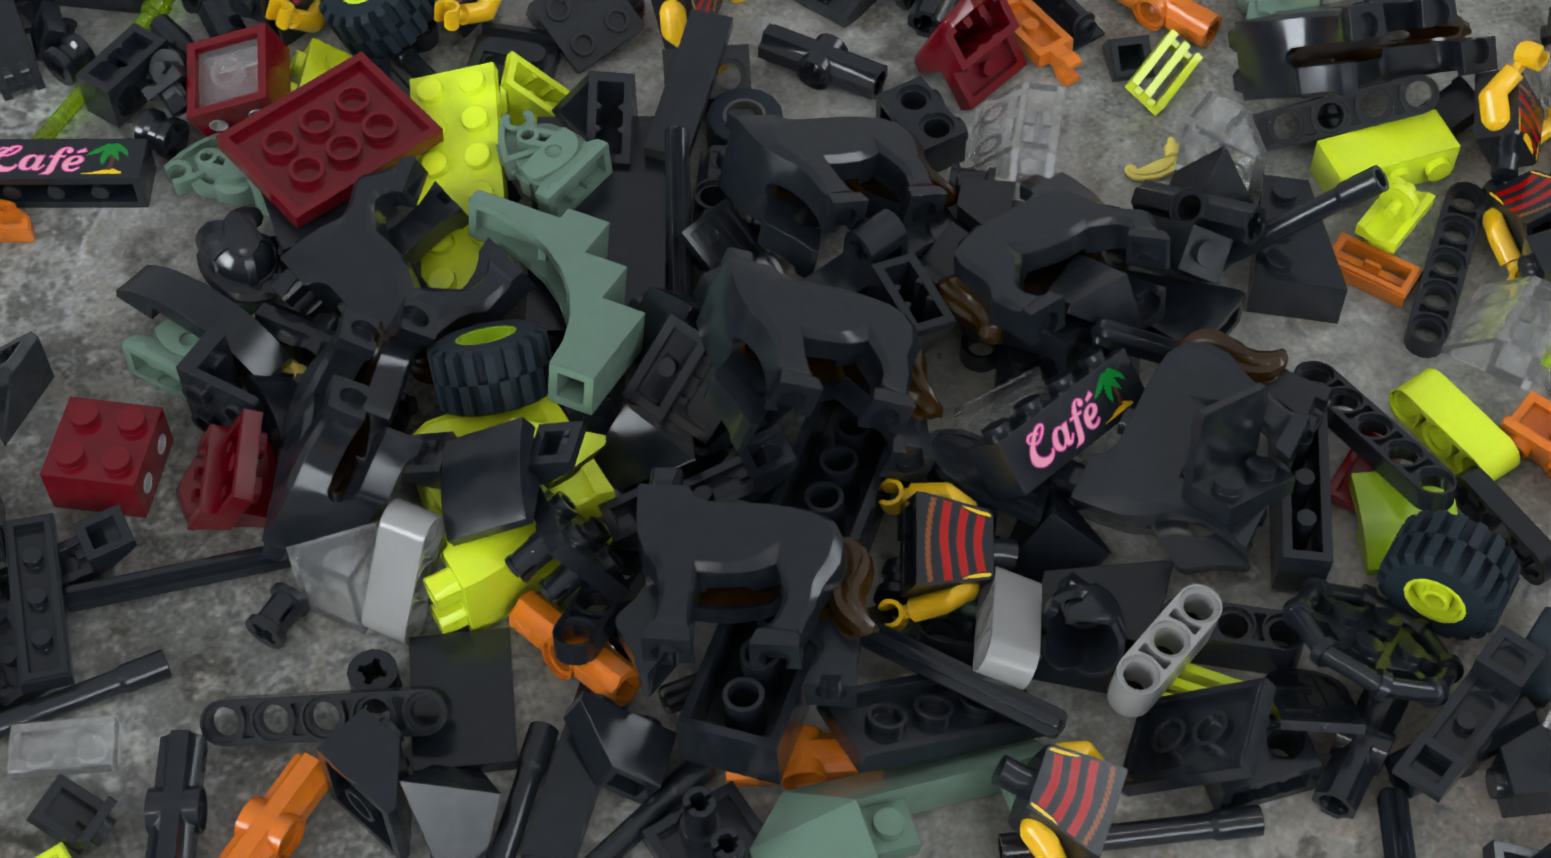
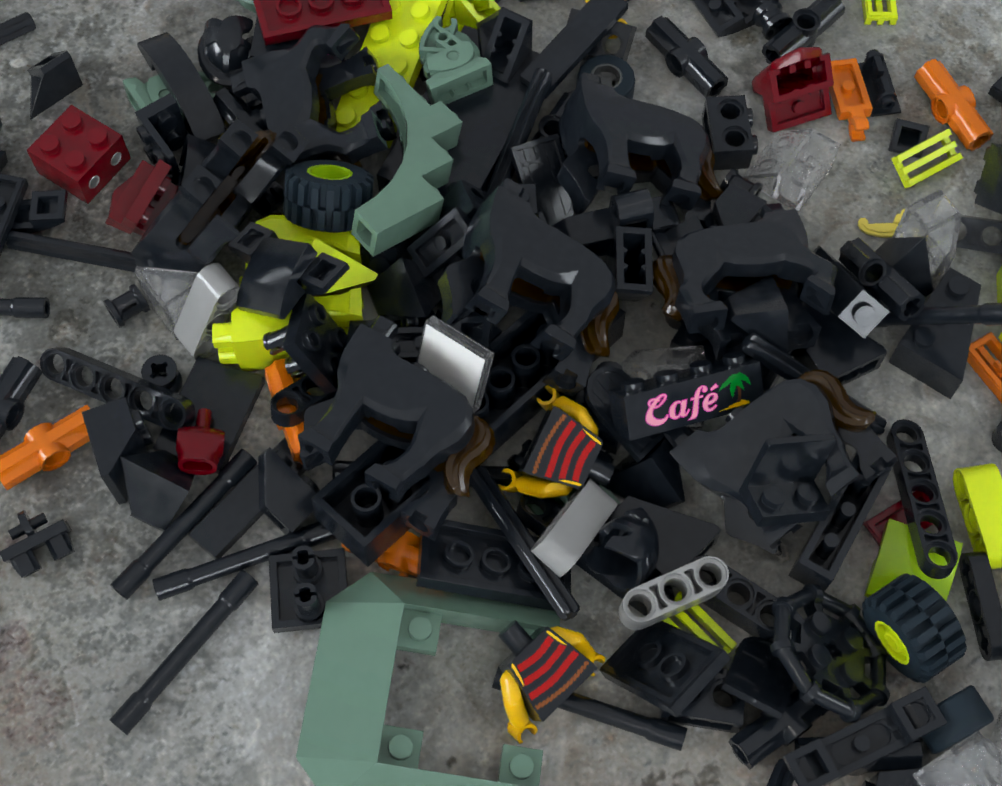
camera: 25 degrees right, 10 degrees up
(480, 738) = (200, 446): none -> dark red piece
(769, 475) = (455, 359): none -> white tile

